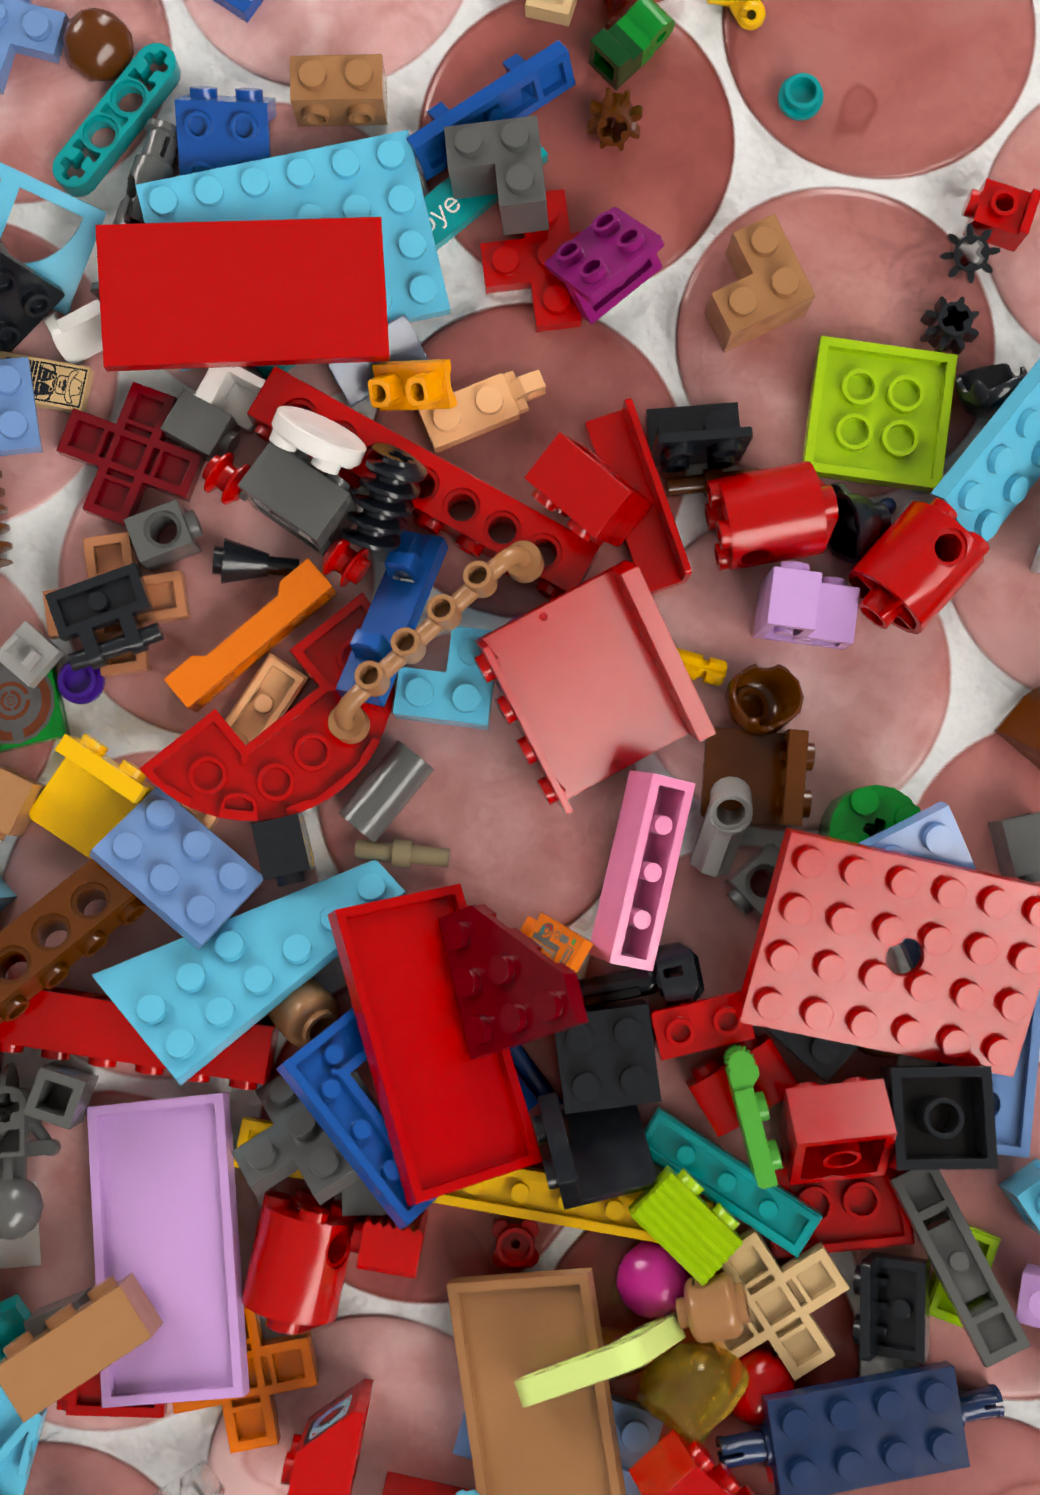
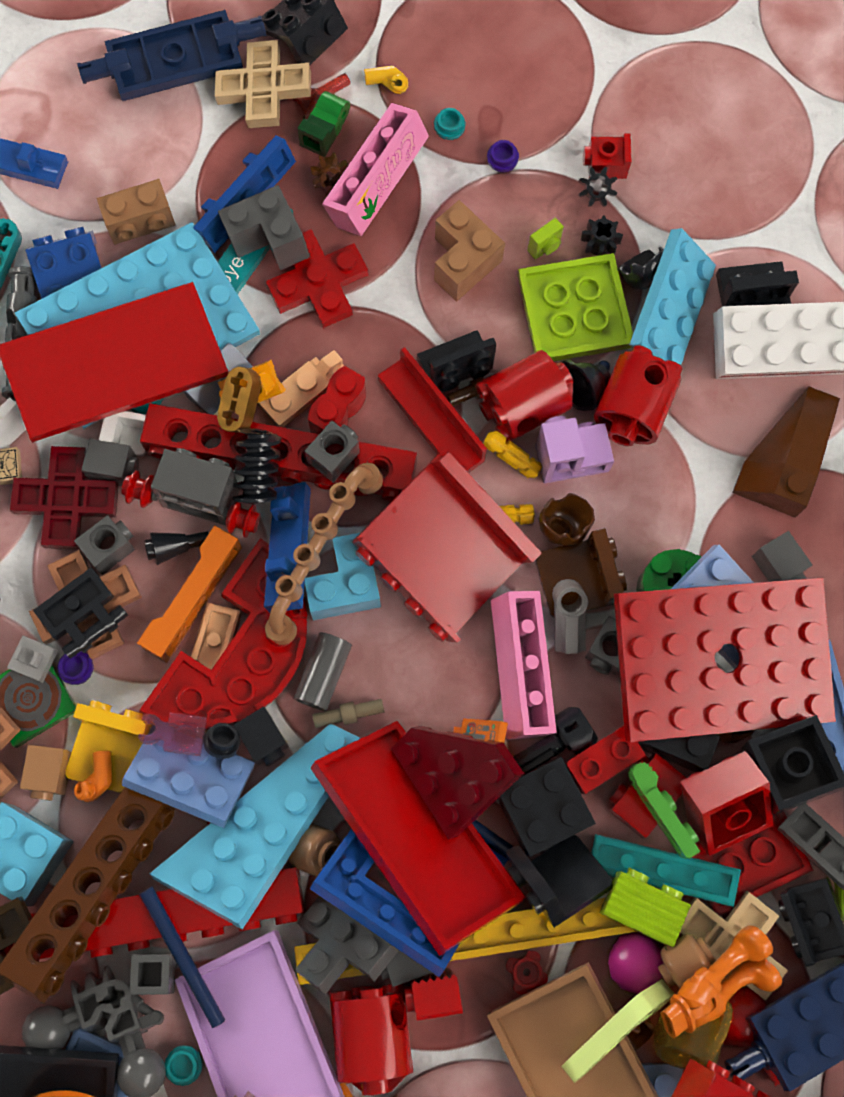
camera: 20 degrees left, 10 degrees down
(65, 836) = (98, 781): none -> orange arm
(67, 1210) = (183, 1065): none -> teal plate
(100, 1087) = (182, 957): none -> dark blue bar
(179, 817) = (180, 735): none -> clear pink plate
(230, 841) = (222, 741): none -> black plate
(317, 436) = (207, 440): white tile -> none
(390, 401) = (239, 399): none -> pearl gold beam
(484, 530) = (333, 465): none -> dark grey brick
(509, 452) = (342, 401): none -> red brick
(588, 491) = (395, 415): red brick -> none
(606, 262) = (357, 265): magenta bracket -> none
(679, 131) = (376, 169): none -> bright pink brick
(723, 1357) = (709, 990): none -> orange piece
(724, 588) = (512, 454): none -> yellow axle
(857, 167) = (503, 156): none -> dark purple plate
(873, 305) = (545, 239): none -> lime plate

